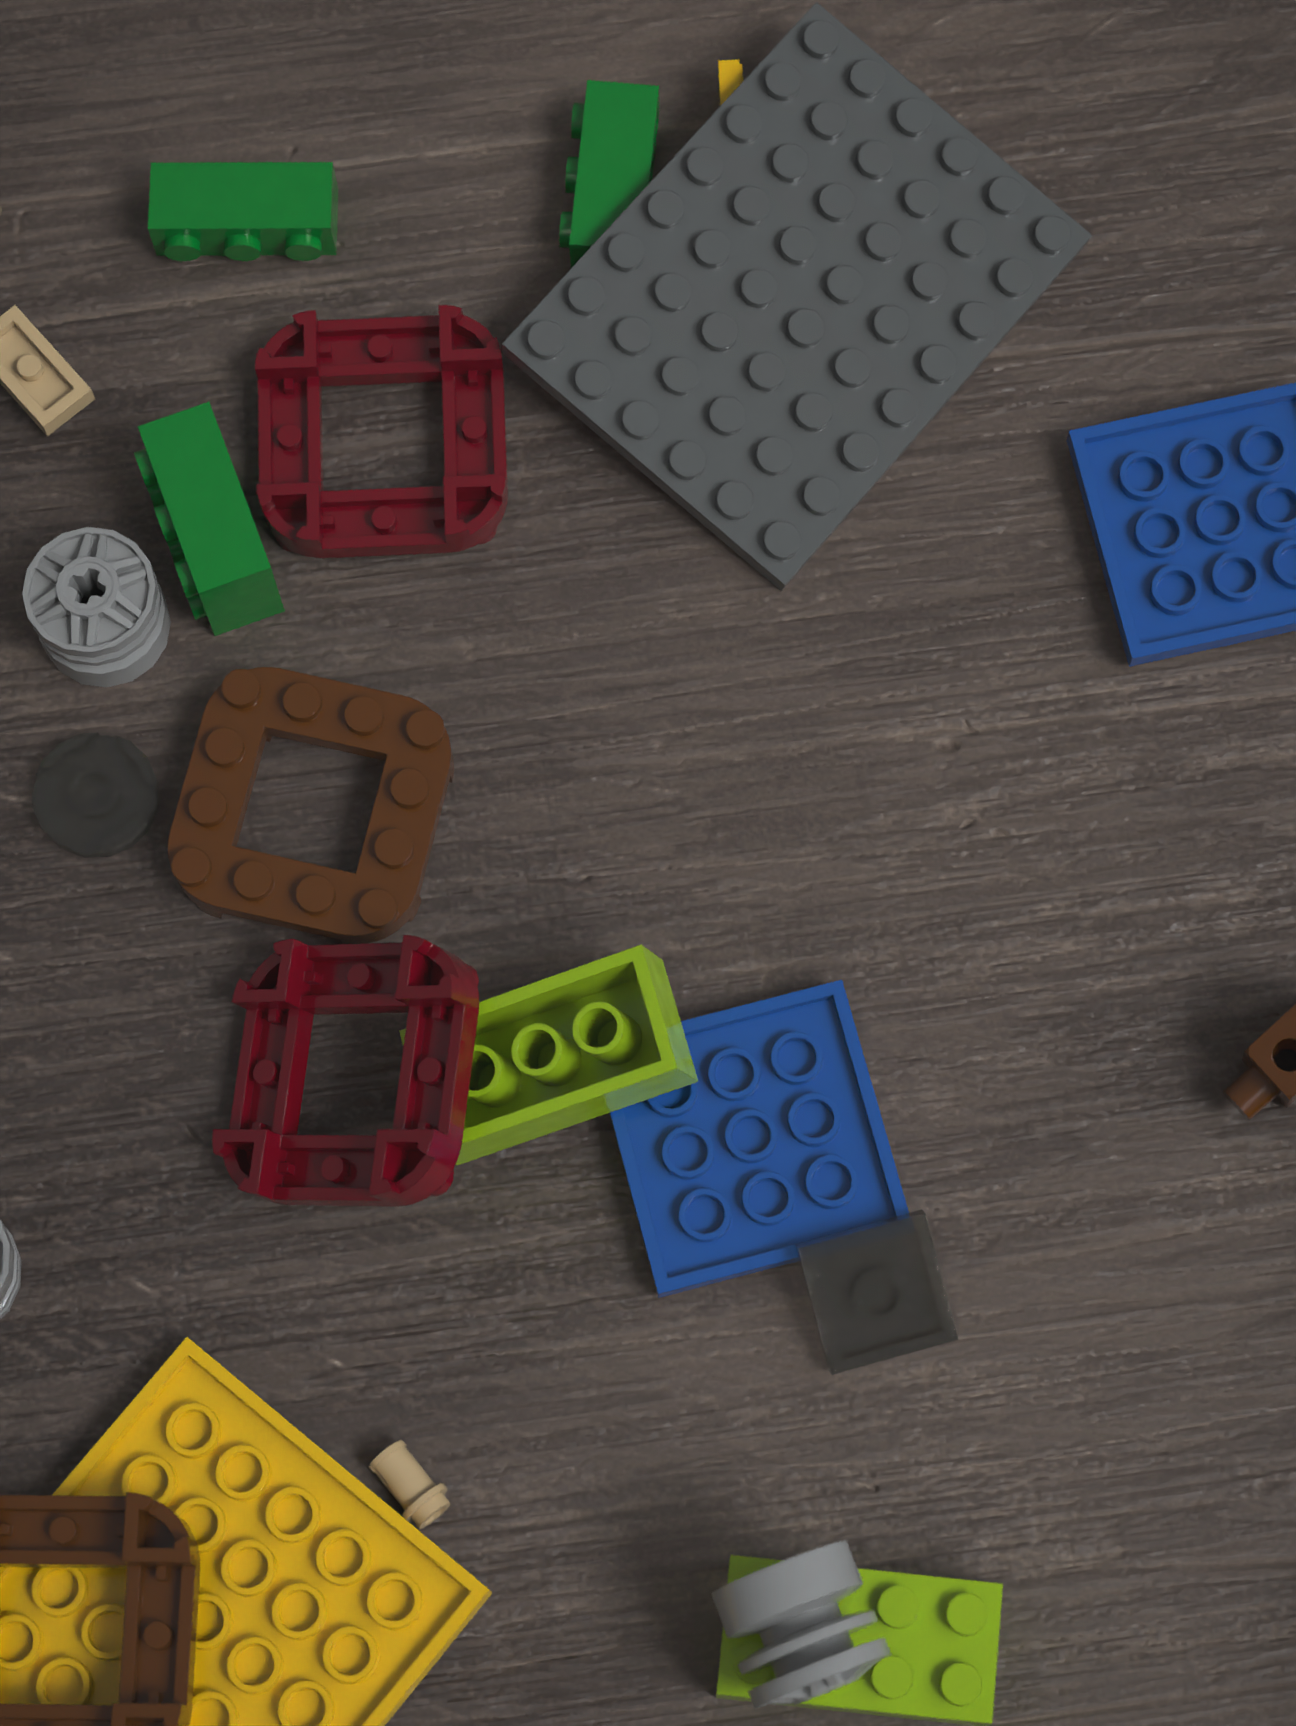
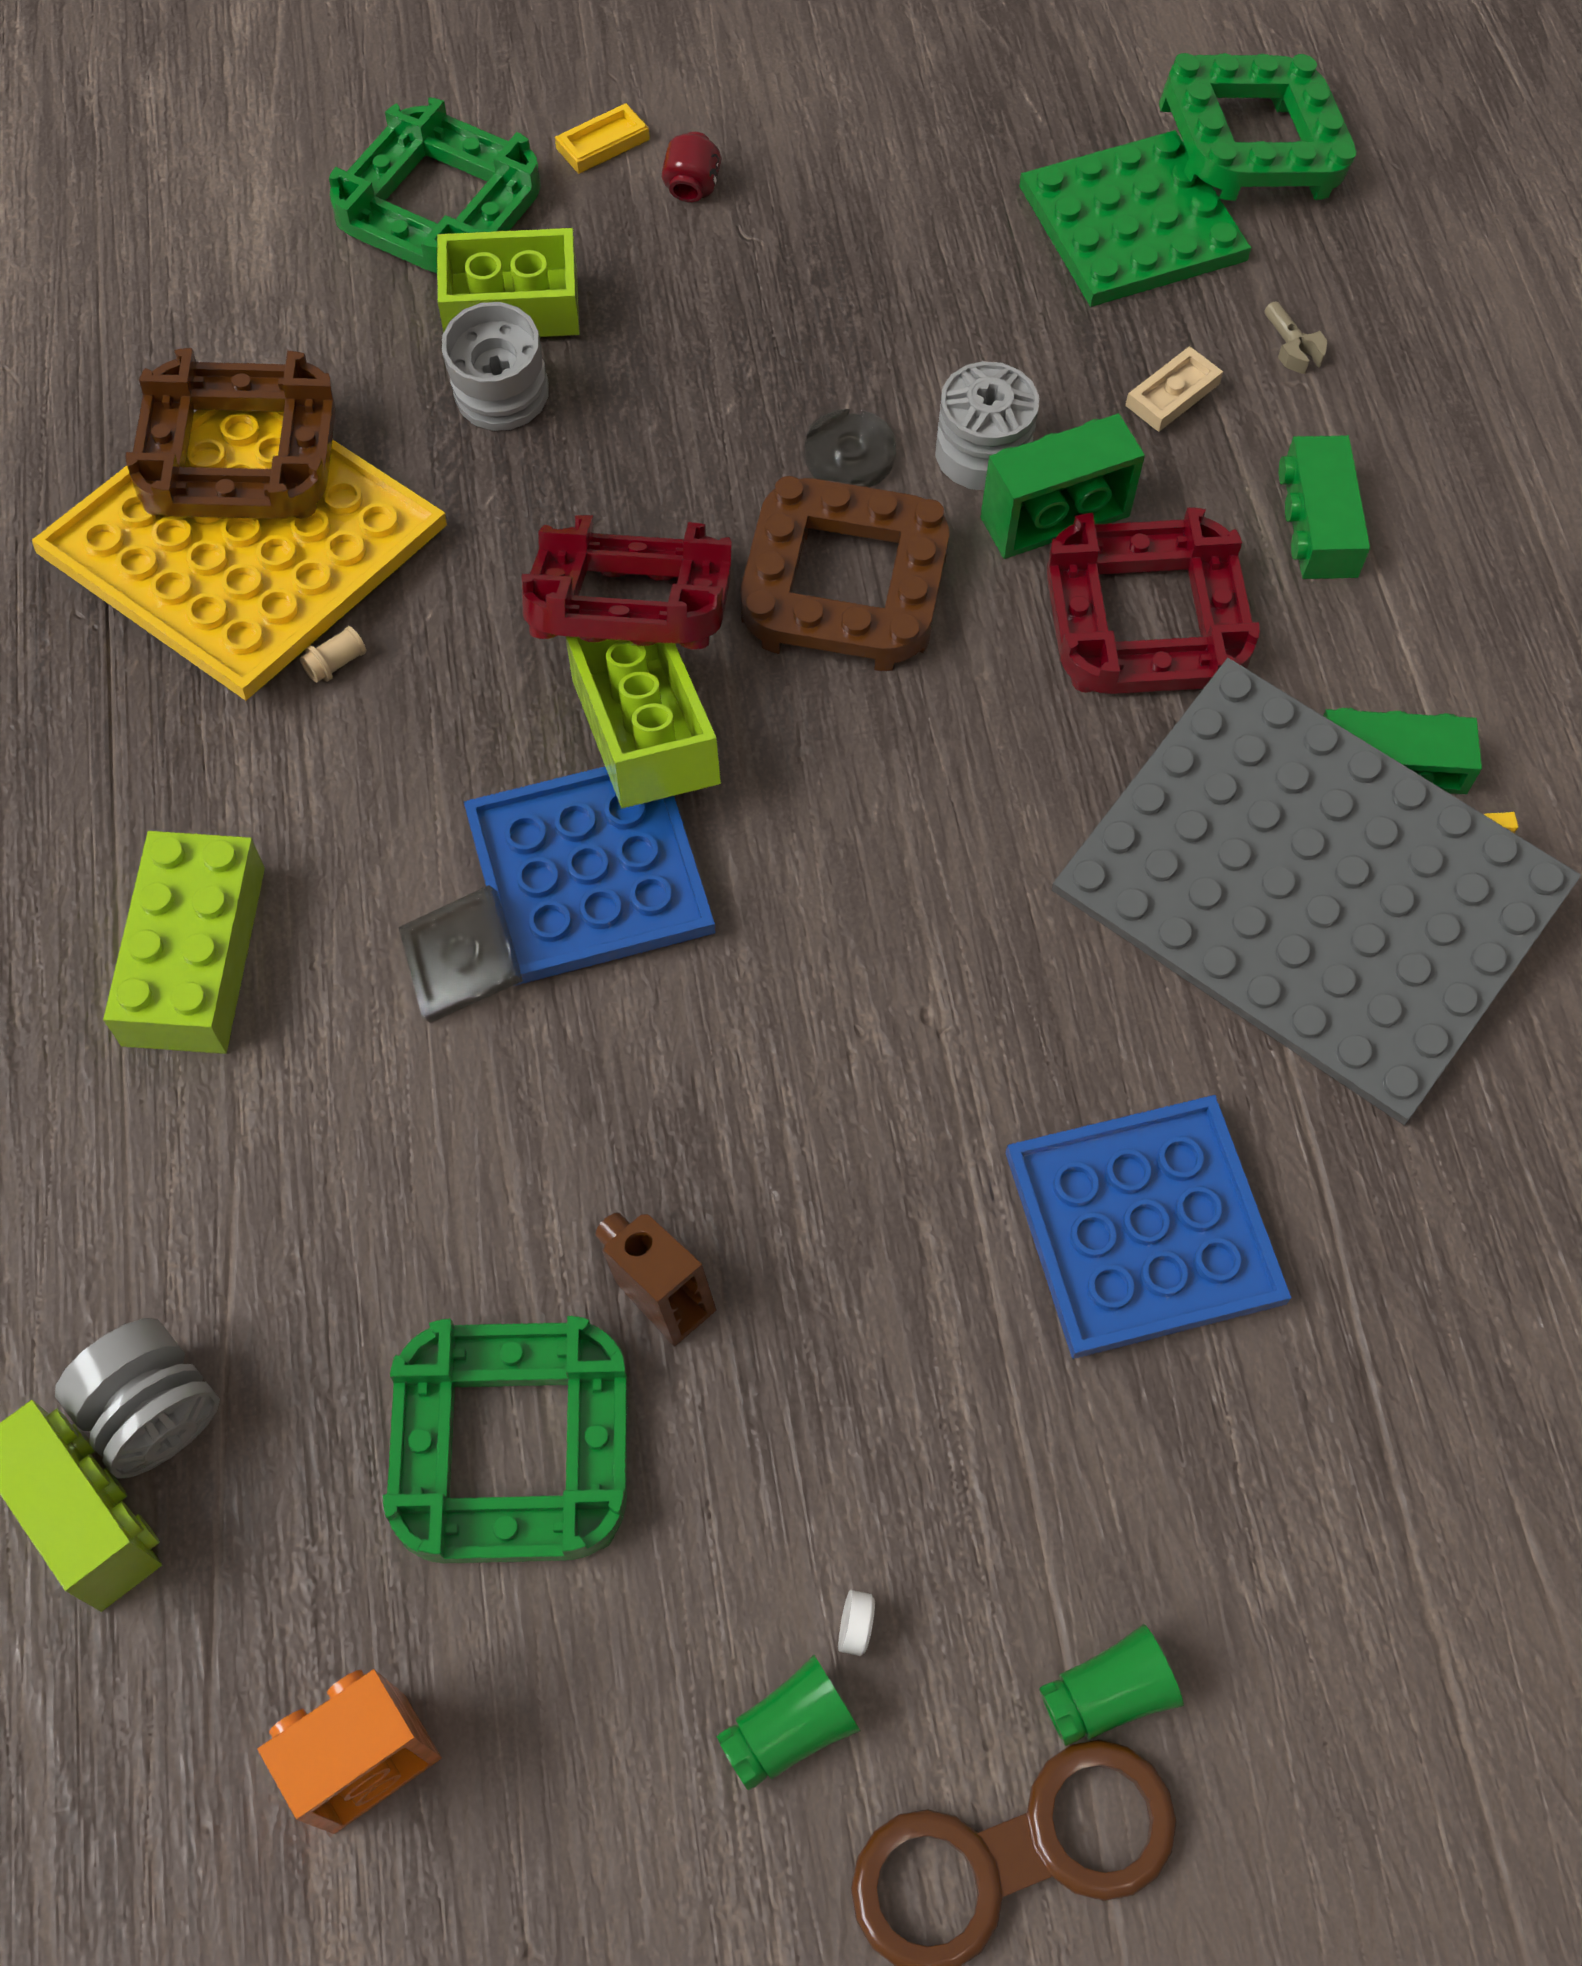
camera: 85 degrees right, 10 degrees down
(800, 1625) = (171, 852): light grey wheel -> none

